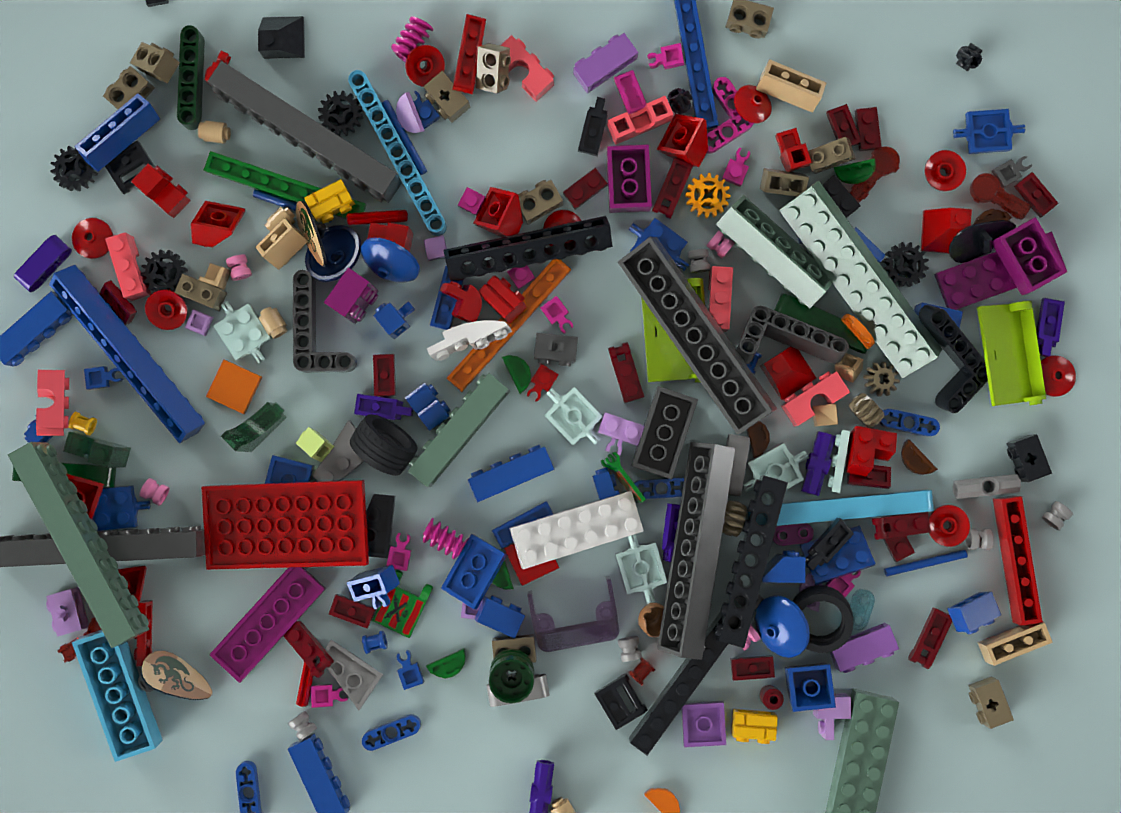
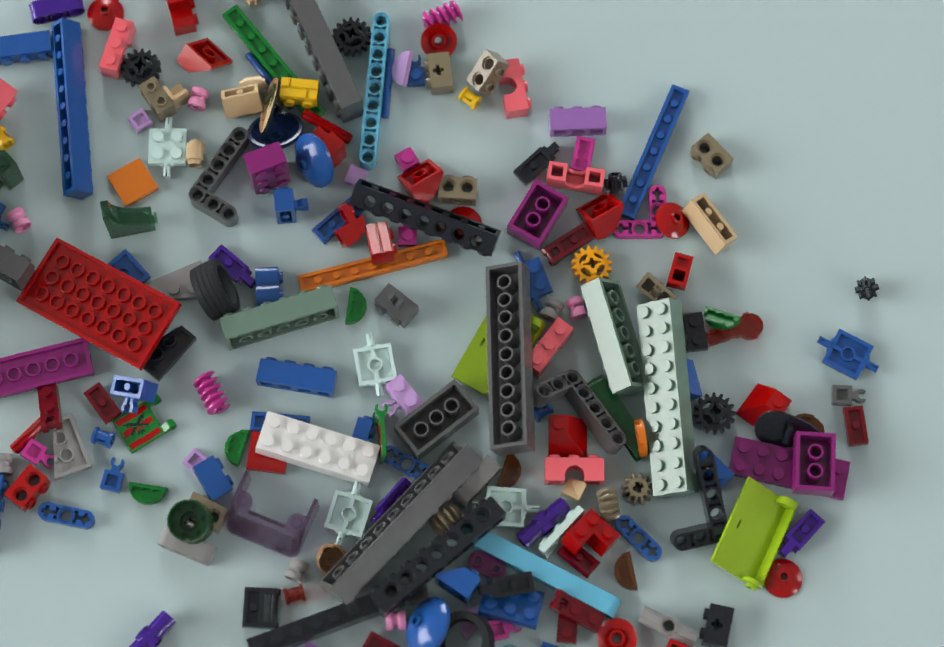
camera: 30 degrees right, 15 degrees down
(99, 377) = (38, 113): blue plate -> none
(120, 305) = (91, 68): dark red plate -> none
(162, 318) = (114, 95): red dish -> none
(314, 444) = (163, 260): yellowish green brick -> none
(334, 731) = (23, 485): none -> red brick
(384, 375) = (251, 244): dark red plate -> none
(399, 555) = (169, 384): dark pink plate -> none
(467, 60) = (465, 63): red tile -> none
(474, 571) = (216, 432): blue plate -> none
(476, 334) = (342, 255): white slope -> none
(490, 103) = (469, 98): none -> yellow bush
(543, 380) = (370, 324): red plate -> none
(555, 312) = (414, 279): dark pink plate -> none
(585, 188) = (500, 203): dark red plate -> none
(626, 373) = (438, 360): dark red plate -> none
(670, 57) = (630, 147): dark pink plate -> none
(736, 170) = (628, 262): dark pink plate -> none
(831, 155) = (706, 293): dark tan brick -> none
(843, 124) = (733, 281): dark red plate -> none
(849, 367) = (617, 465): tan slope -> none
(868, 128) = (752, 294): dark red plate -> none
(954, 168) = (796, 354): red dish -> none
(983, 191) = (814, 396): clear red piece -> none

